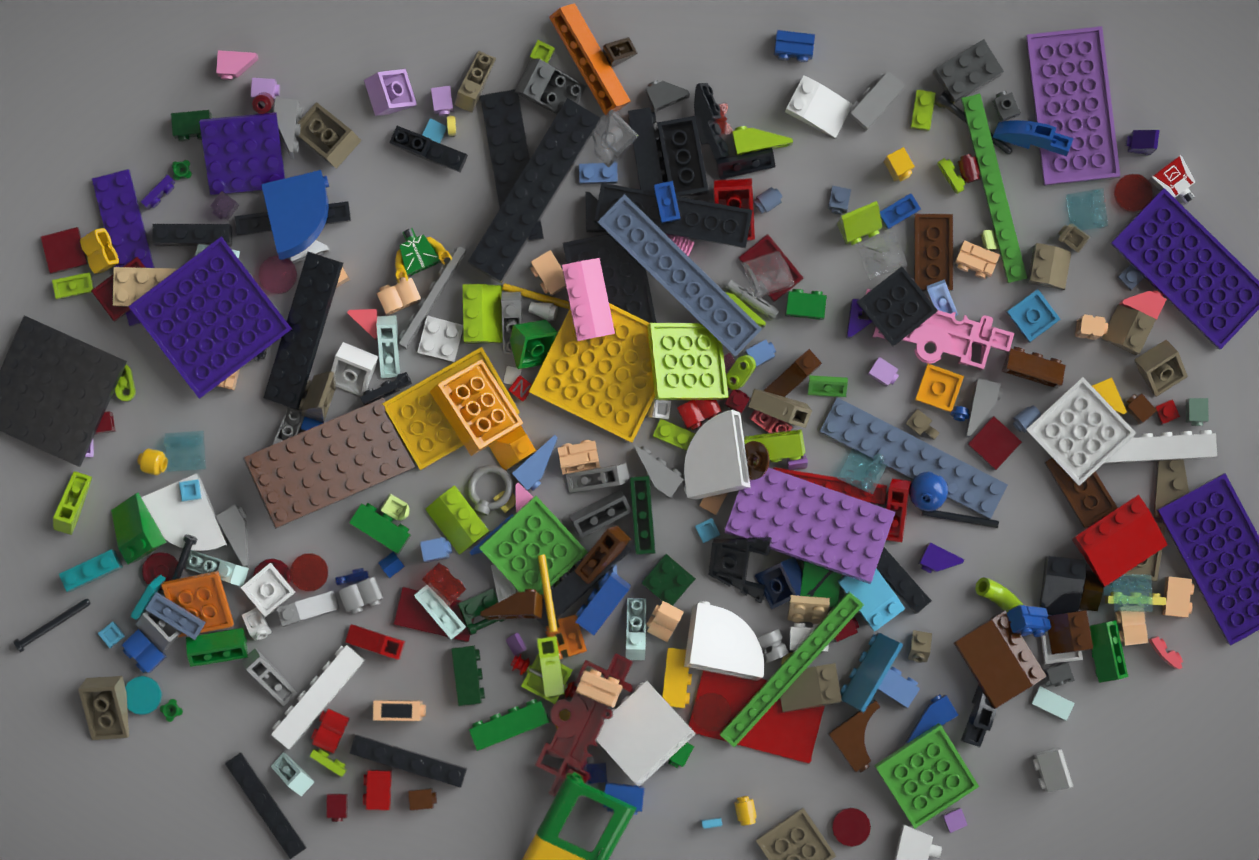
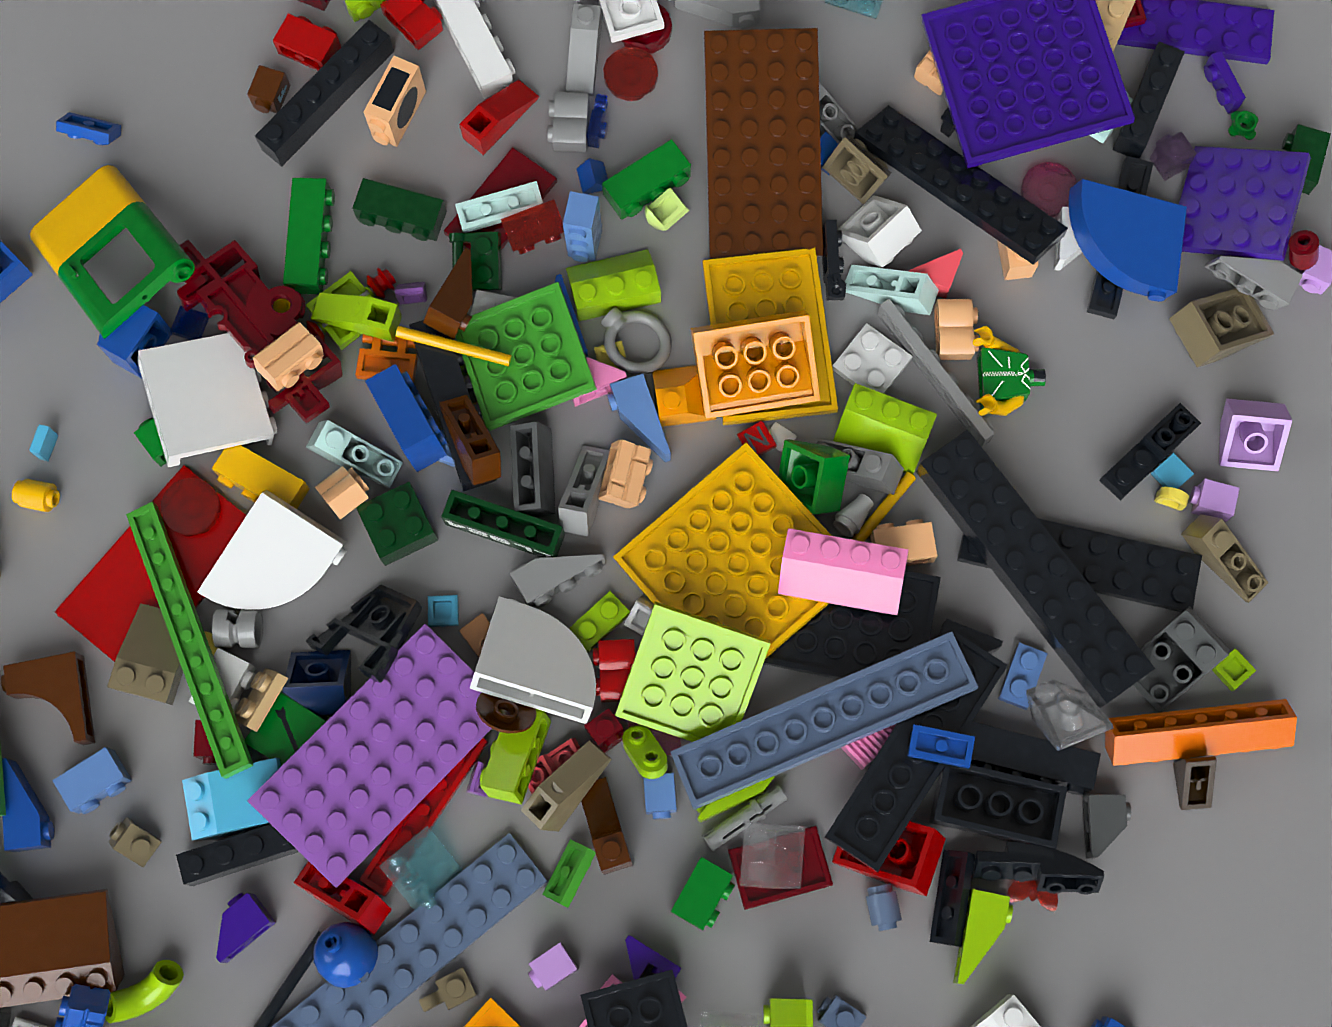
camera: 120 degrees right, 10 degrees down
(870, 672) = (126, 748): dark azure slope -> none

